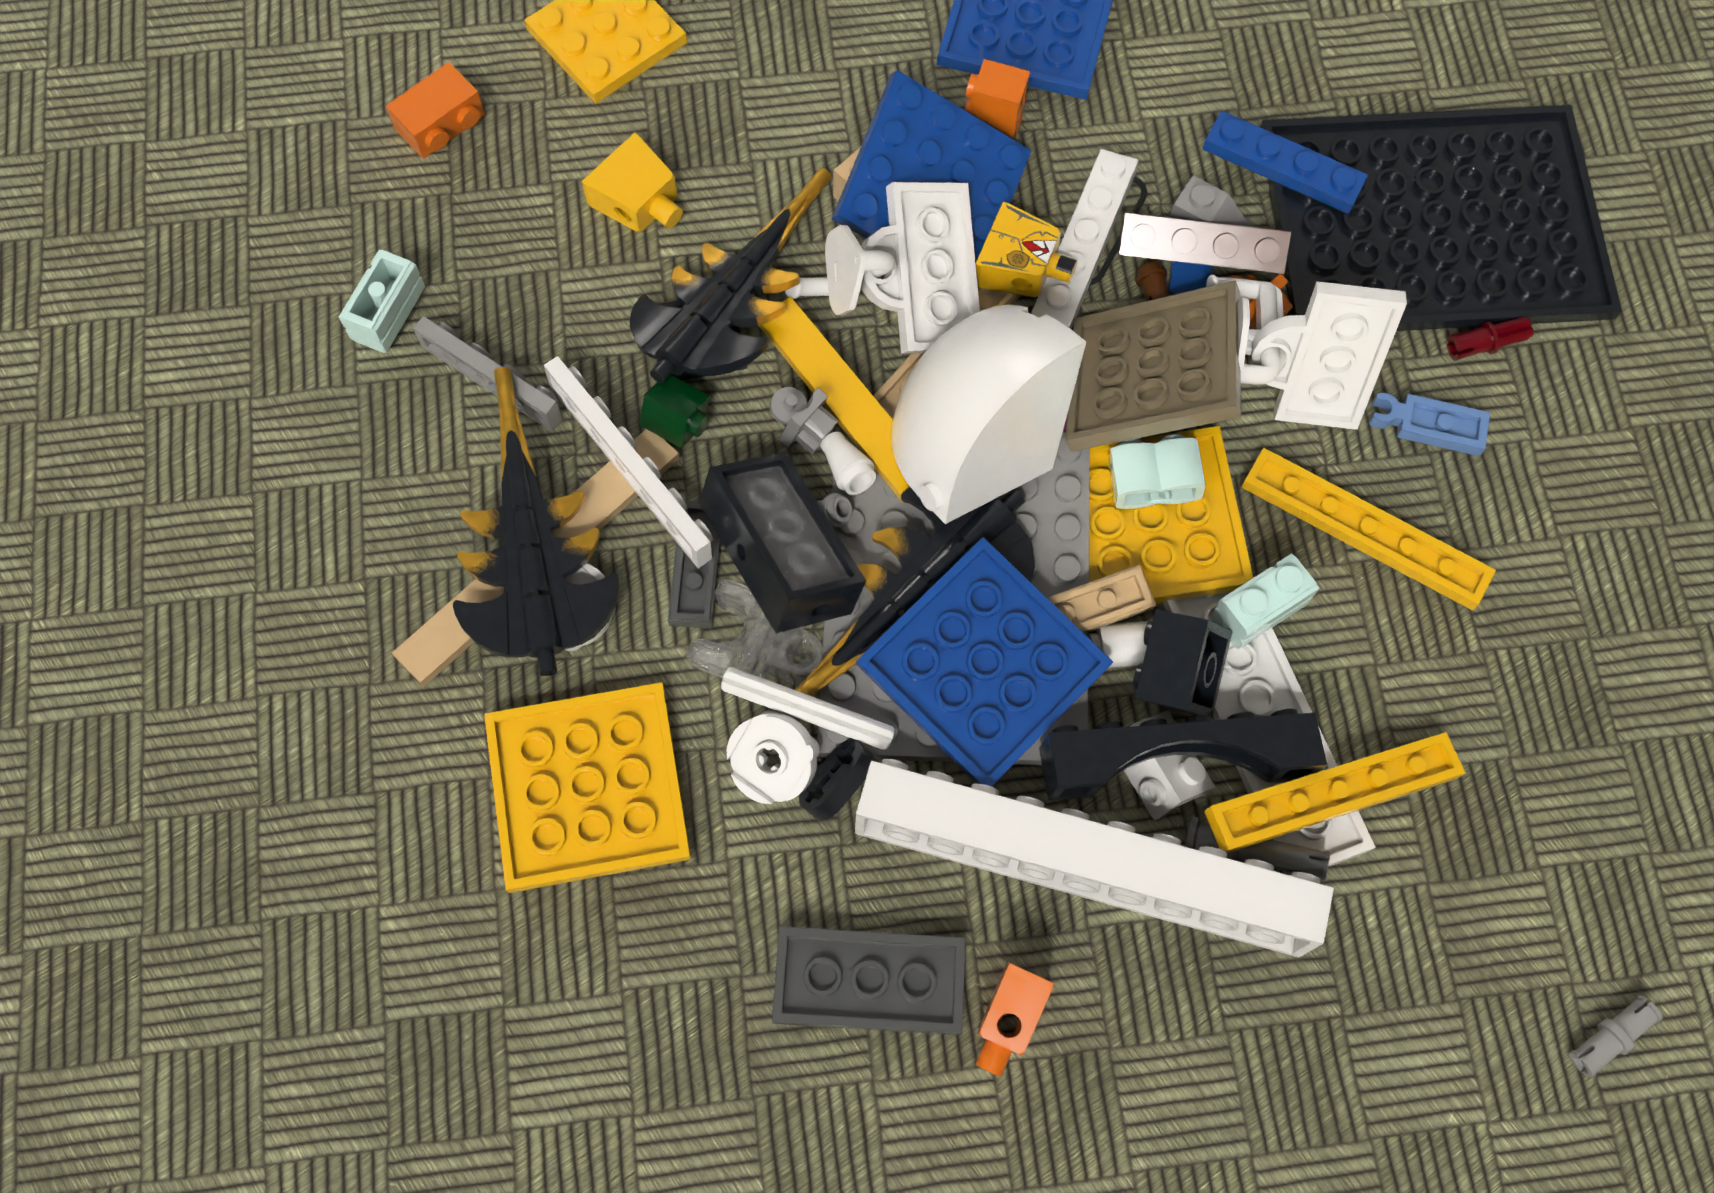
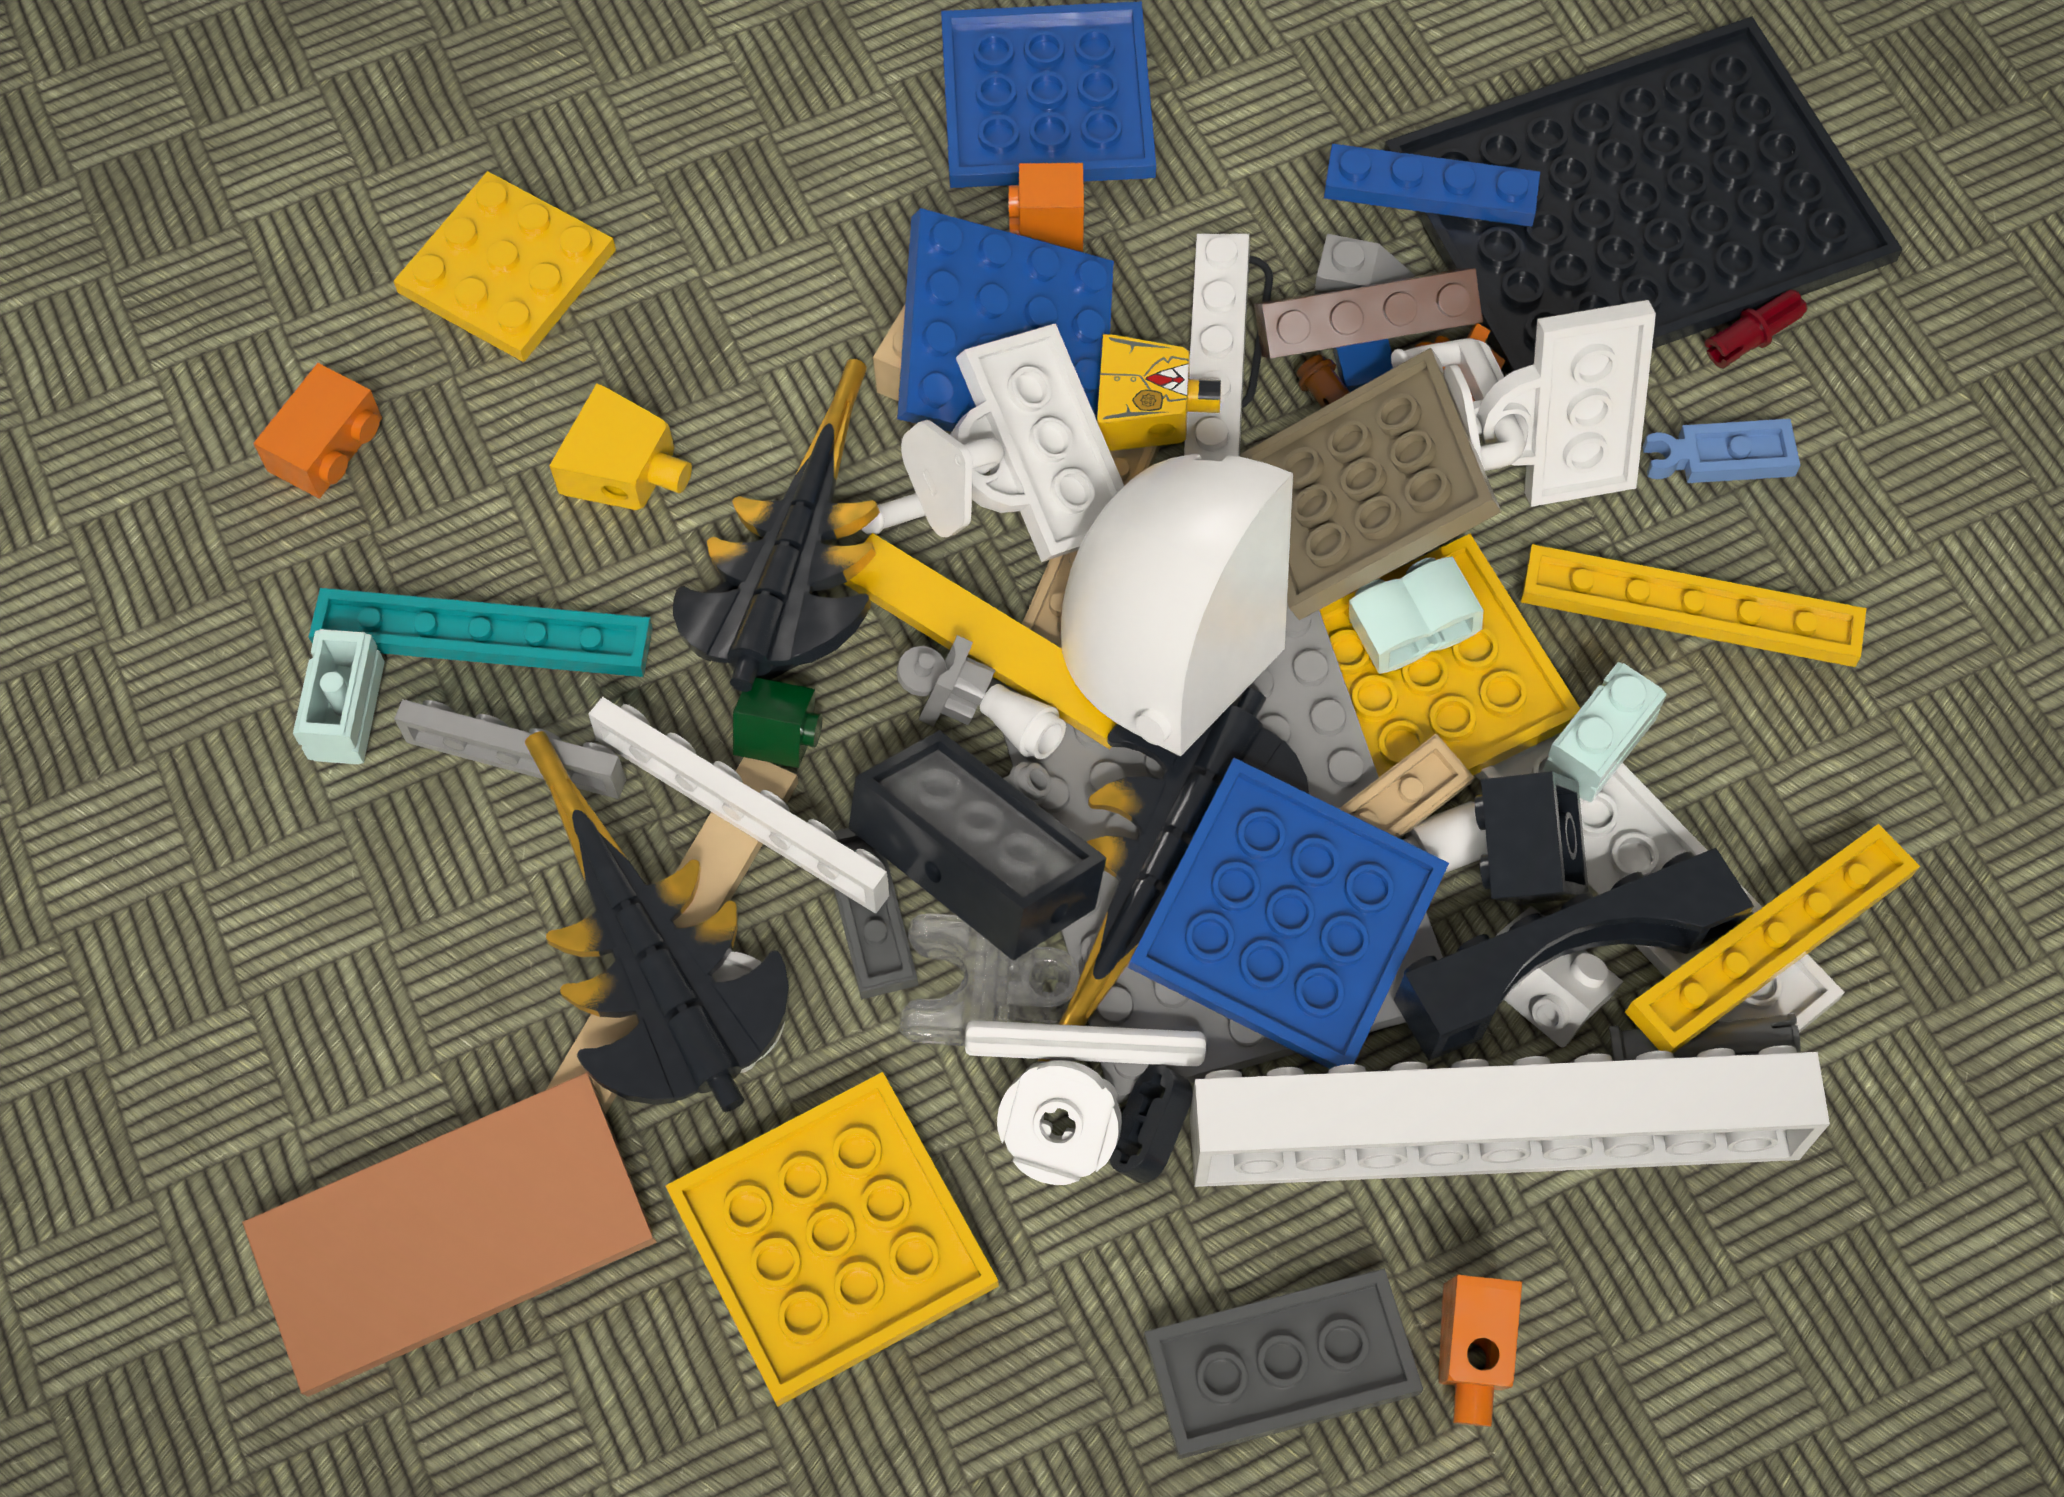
camera: 15 degrees left, 5 degrees down
(327, 698) = (447, 1234): none -> nougat tile
(502, 287) = (489, 631): none -> teal plate

